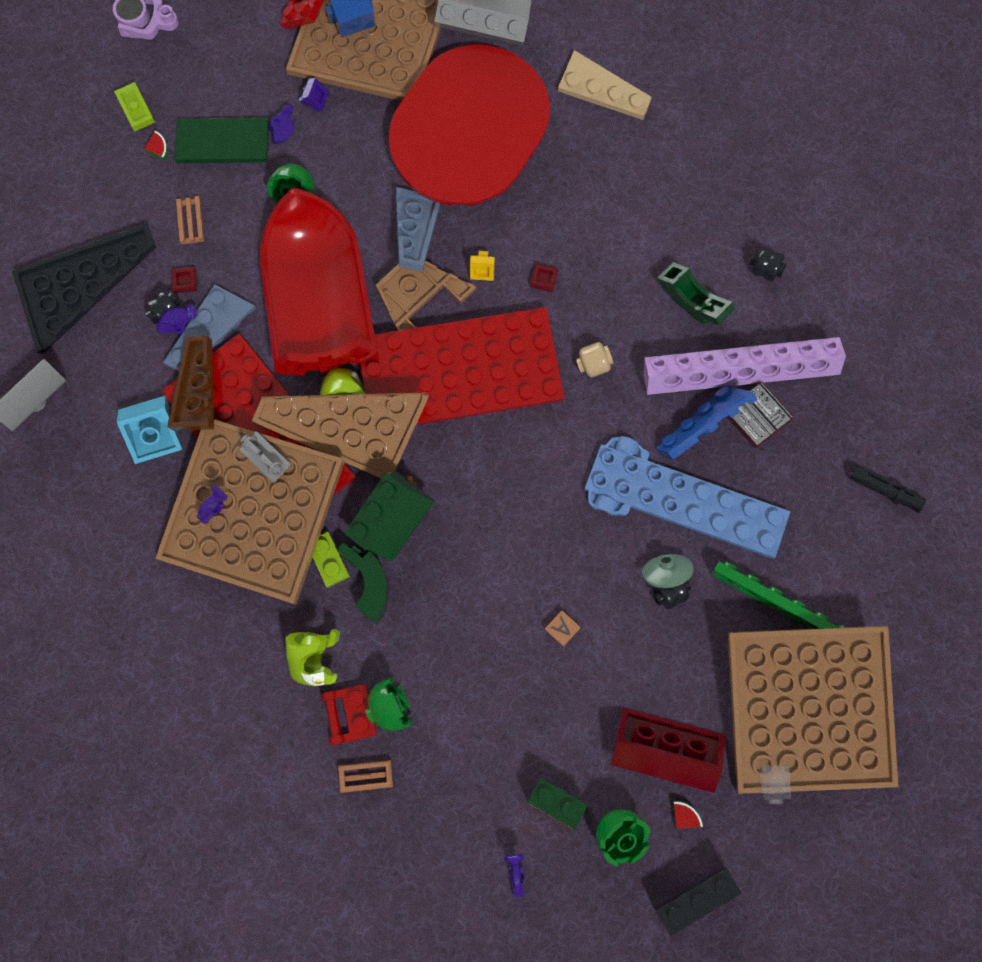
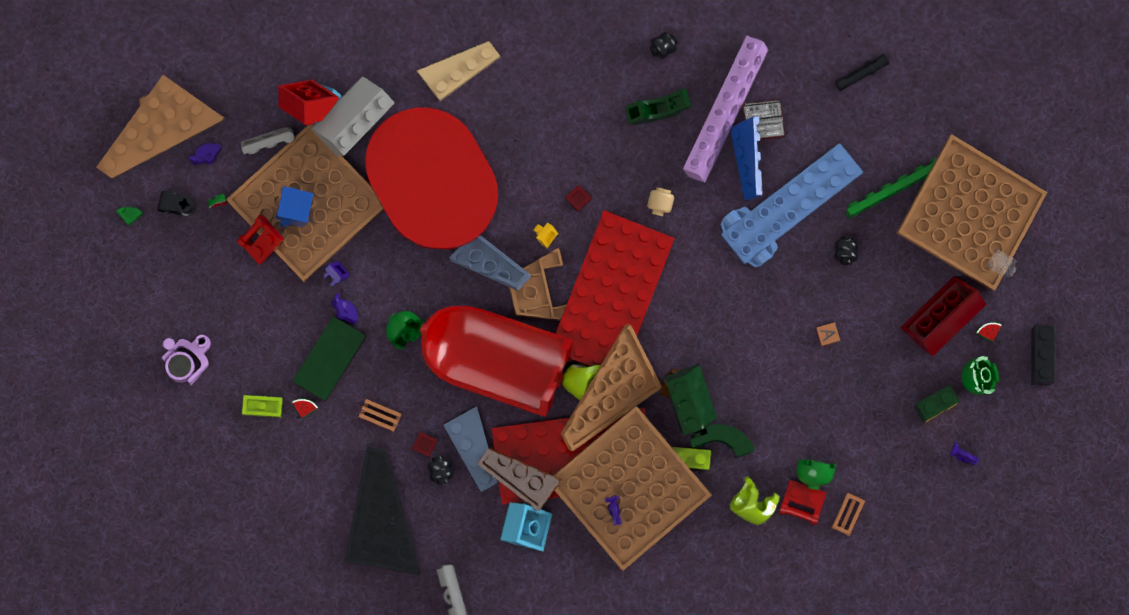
camera: 65 degrees left, 5 degrees up
(175, 319) = (456, 465): dark purple piece -> none
(264, 456) = (603, 456): light grey hinge -> none
(668, 571) = (832, 244): sand green dish -> none

